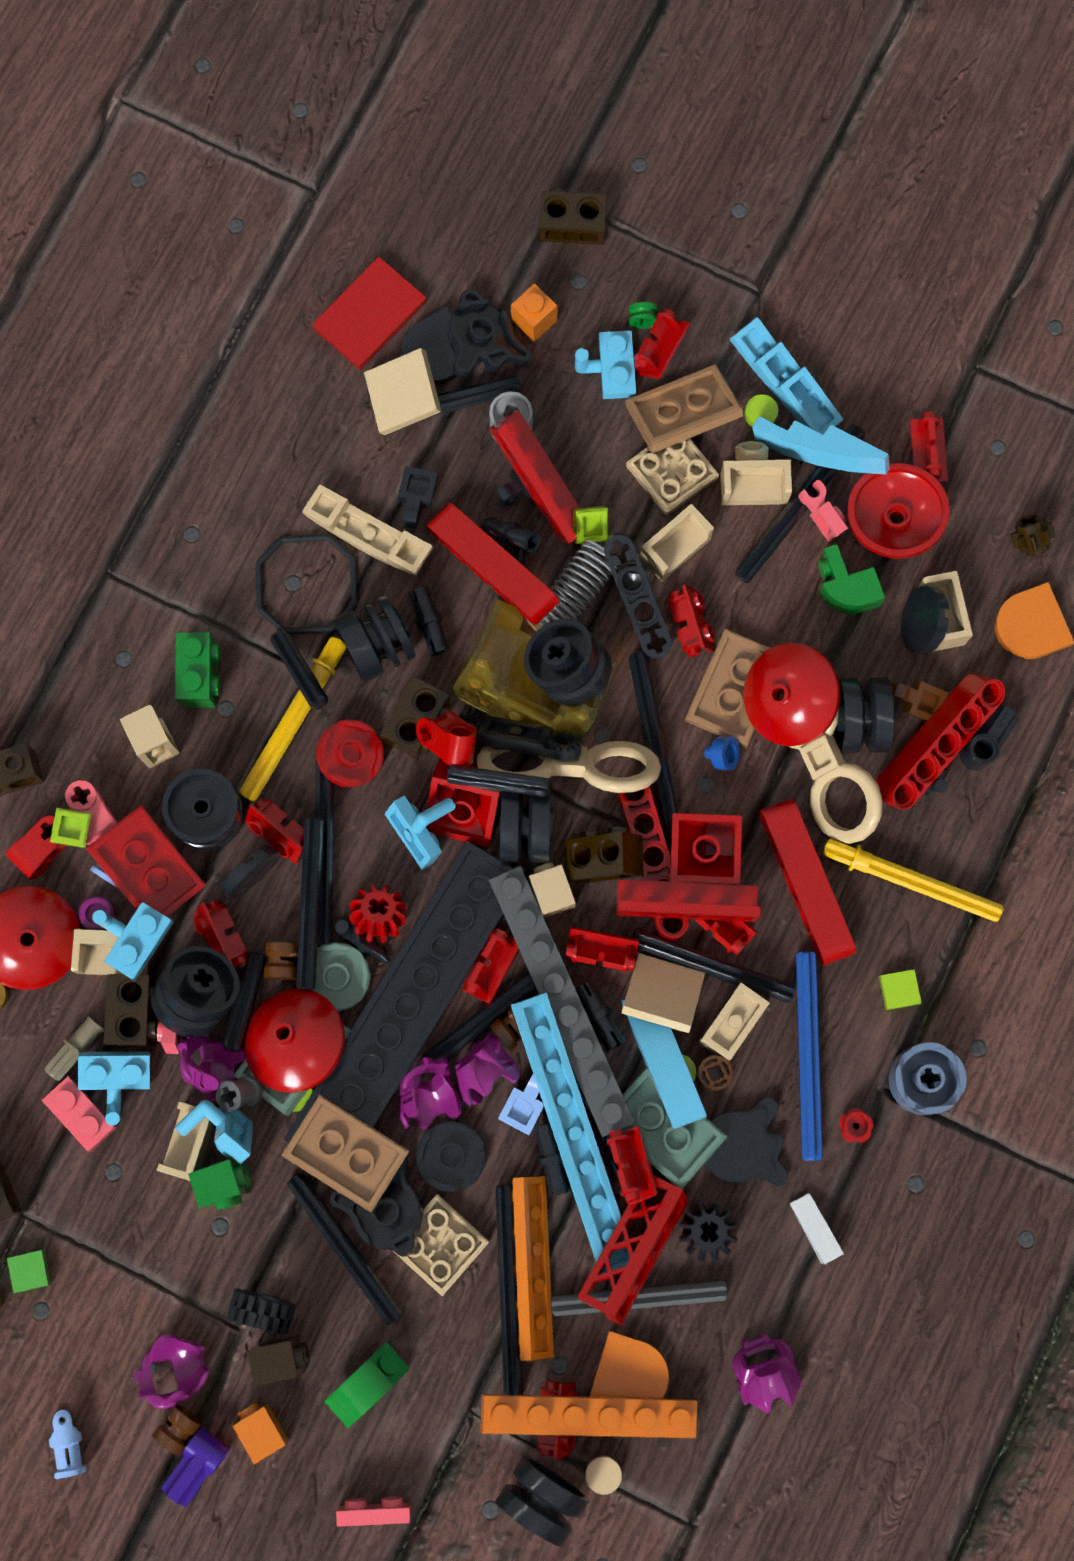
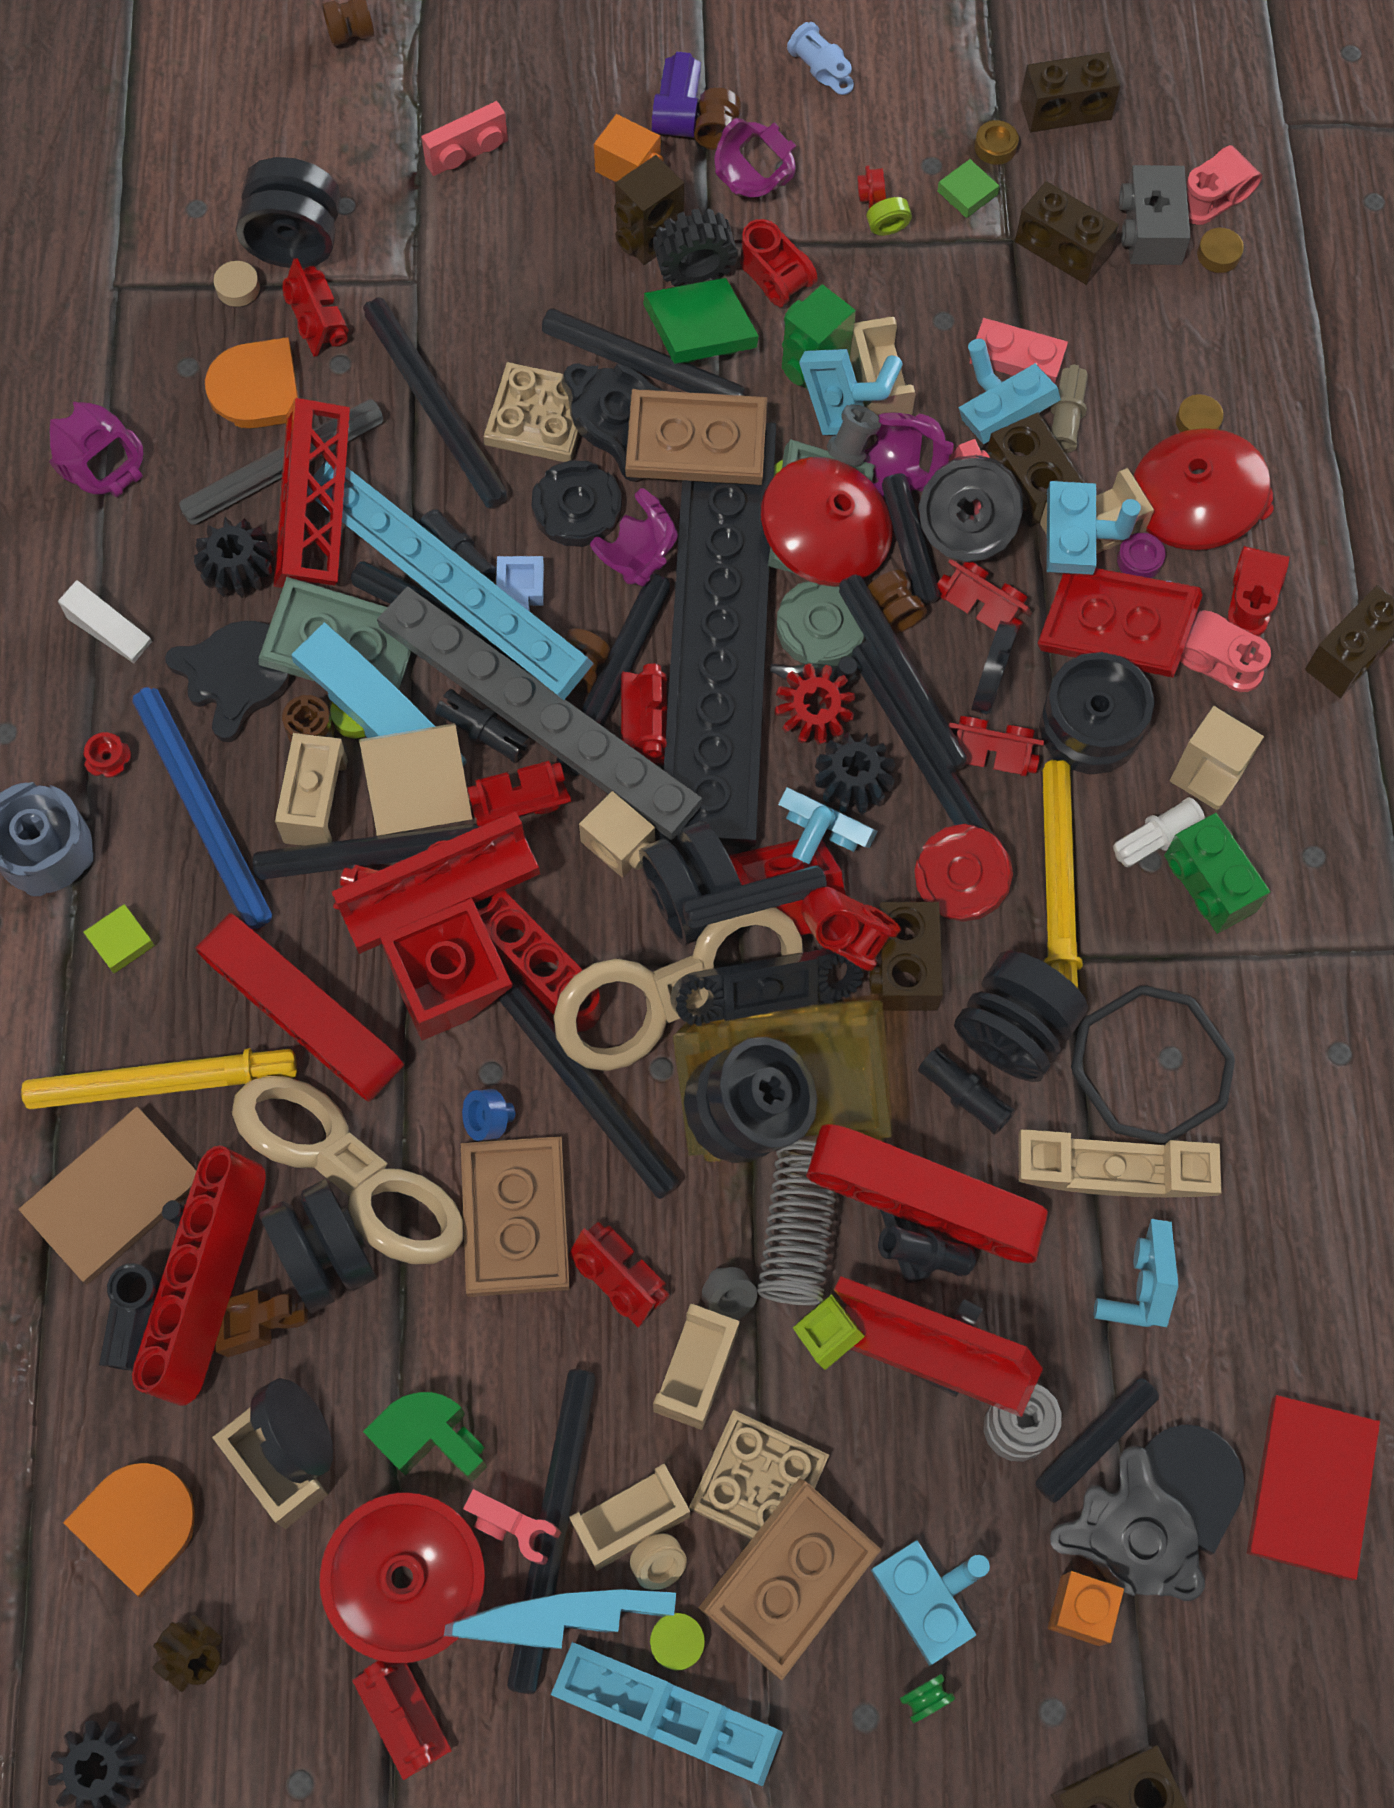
camera: 150 degrees right, 10 degrees down
(71, 827) = (1234, 608): lime tile -> none
(98, 1307) = (871, 186): none -> red plate
(102, 1272) = (889, 216): none -> lime tile
(208, 1272) = (778, 267): none -> red piece
(211, 718) = (1157, 832): none -> white axle
(289, 1251) = (700, 320): none -> green tile
(299, 669) = (1090, 935): black axle -> none
(367, 1385) = (538, 235): green brick -> none
(377, 866) = (838, 764): none -> black gear
(393, 445) = (1155, 1284): none -> medium azure plate
(402, 391) = (1194, 1383): tan tile -> none
(416, 491) = (1088, 1258): black plate -> none
(482, 1067) = (585, 586): magenta helmet -> none
(533, 1268) = (420, 432): orange plate -> none
(588, 1416) = (277, 311): orange plate -> none
(604, 856) = (571, 895): dark brown brick -> none
(633, 1165) = (368, 582): red hinge -> none
(641, 594) = (713, 1249): black beam -> none
(656, 354) = (874, 1681): red hinge -> none
(809, 697) = (429, 1220): red dish -> none
(971, 823) = (110, 1195): none -> medium nougat tile

